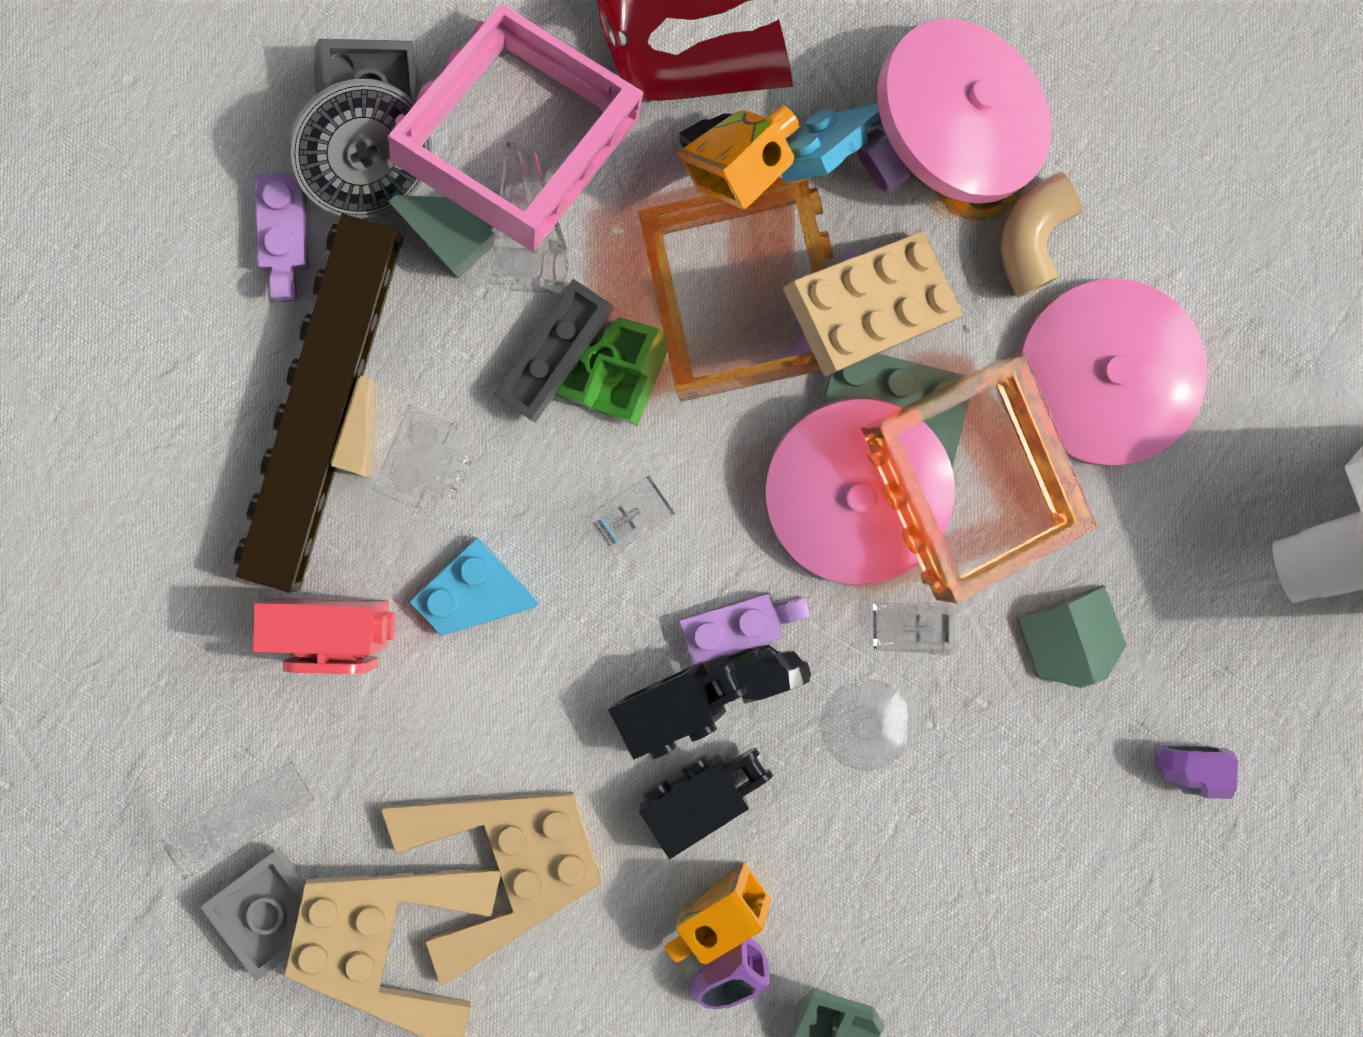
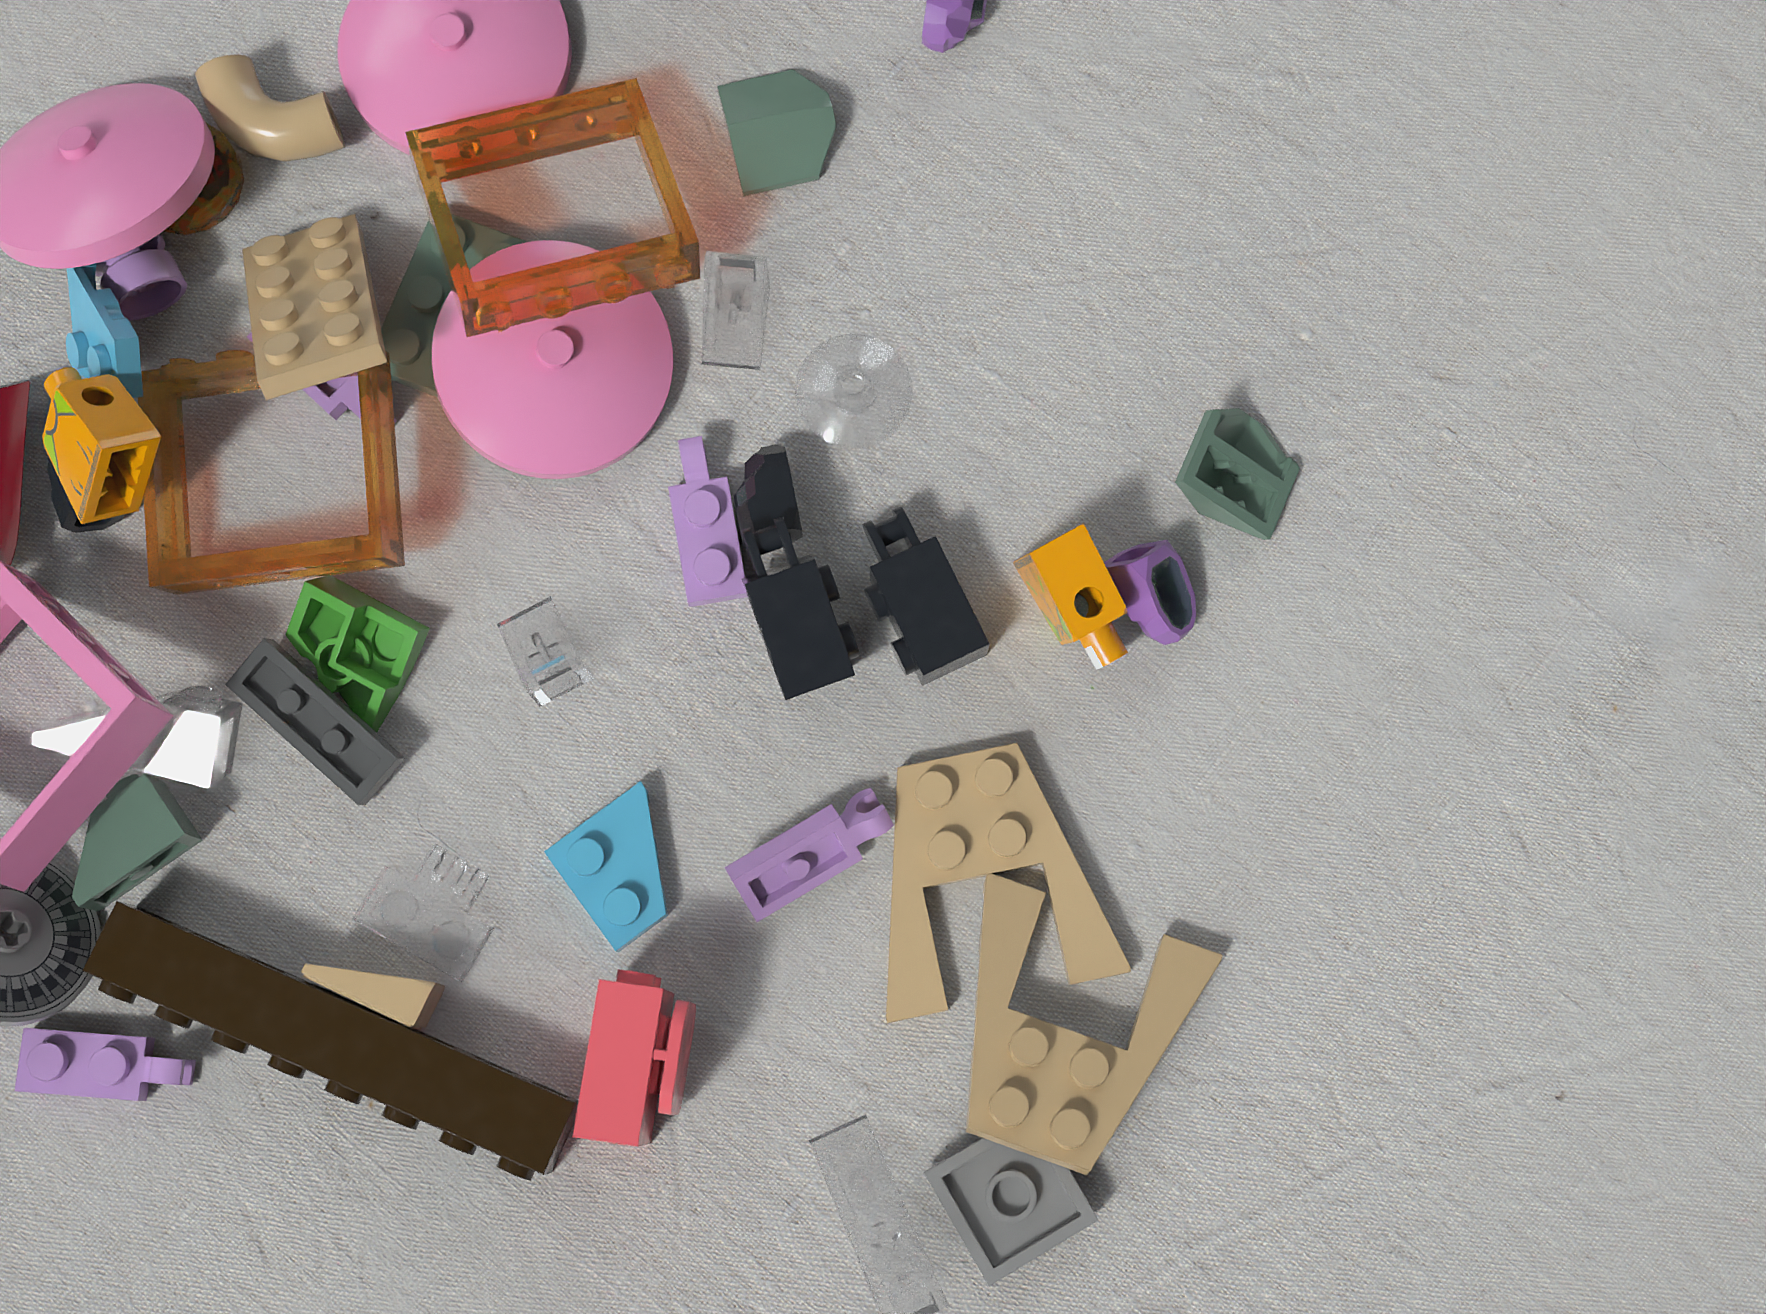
camera: 75 degrees left, 10 degrees down
(498, 737) = (807, 854): none -> lavender plate

